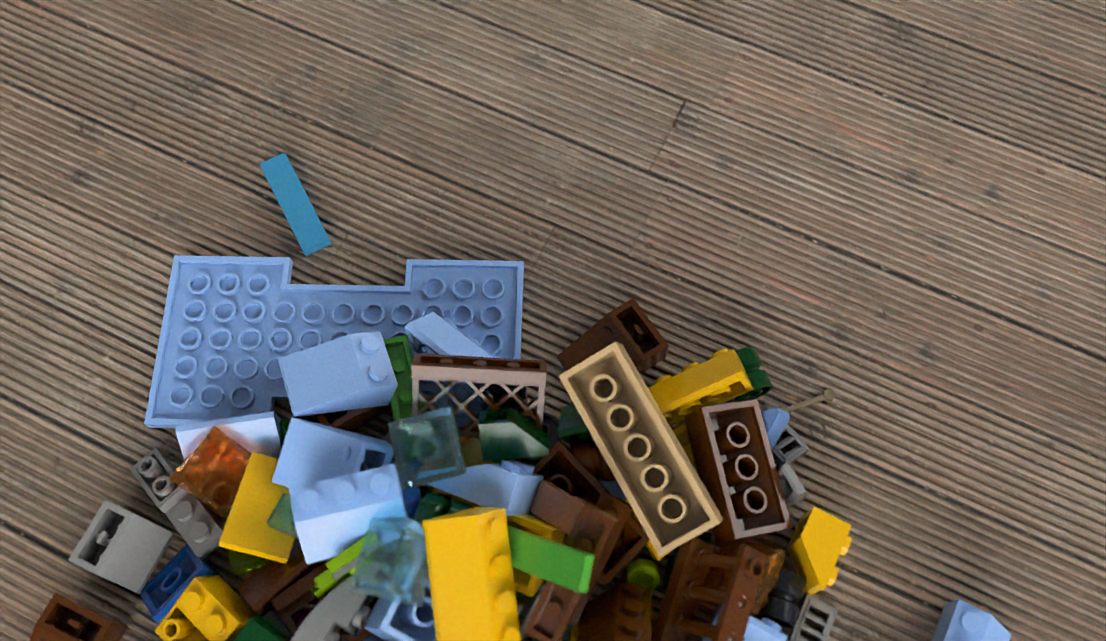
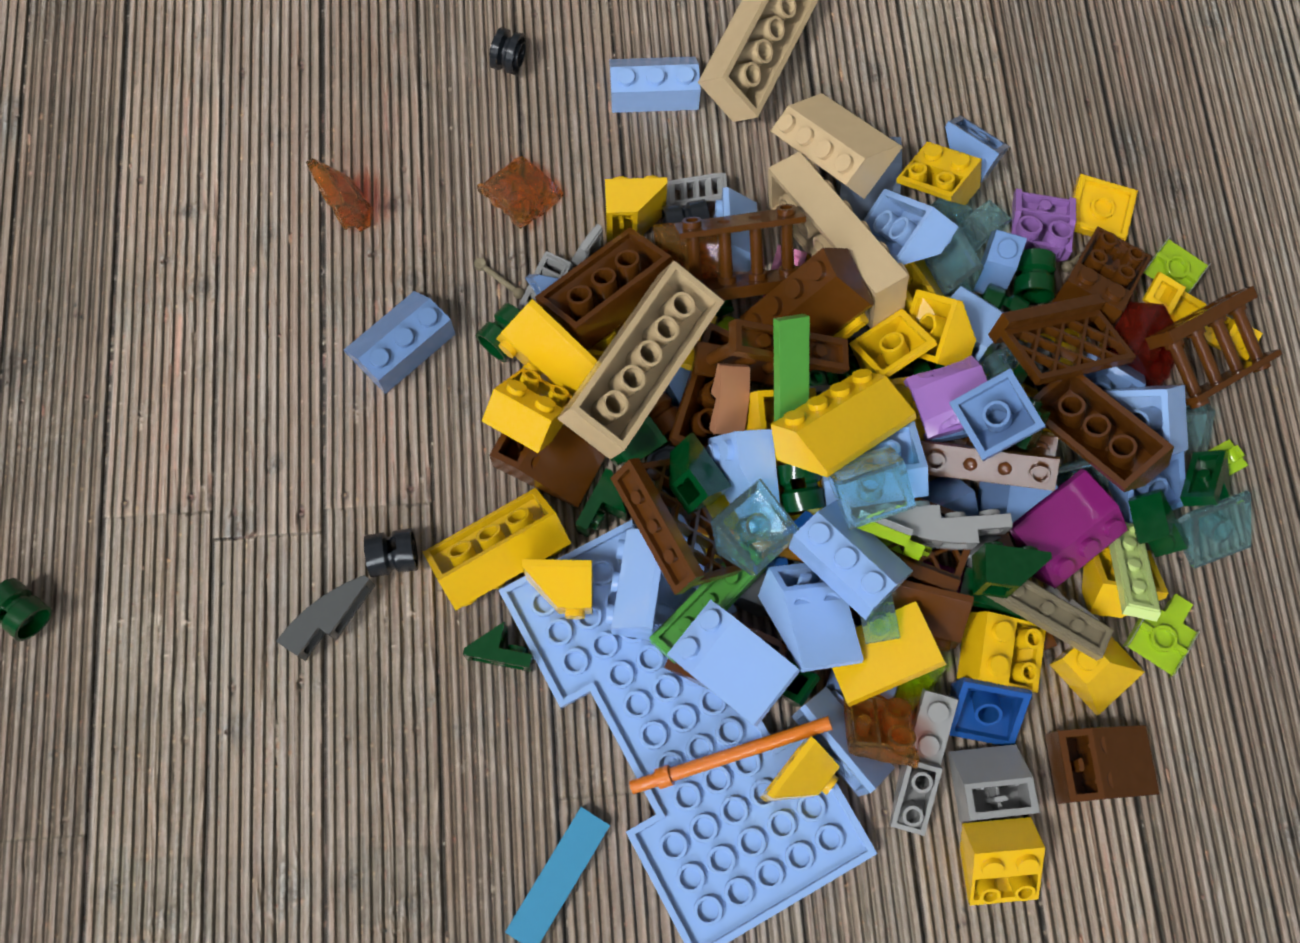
camera: 125 degrees left, 5 degrees up
(64, 516) = (1001, 860): none -> yellow slope
(230, 386) = (804, 774): none -> yellow slope
(302, 300) = (666, 775): none -> orange bar
(477, 235) = (490, 650): none -> dark green slope
(491, 297) = (563, 584): none -> yellow slope
(553, 386) = (604, 498): none -> dark green slope
(558, 277) = (494, 546): none -> yellow slope
(575, 138) = (326, 615): none -> dark grey slope
(599, 201) = (391, 552): none -> black wheel
(654, 339) = (527, 409): none -> yellow slope
(783, 292) = (401, 340): none -> medium blue slope
(887, 463) = (521, 191): none -> clear orange slope
(948, 304) = (343, 195): none -> clear orange slope
(1057, 530) = (507, 50): none -> black wheel

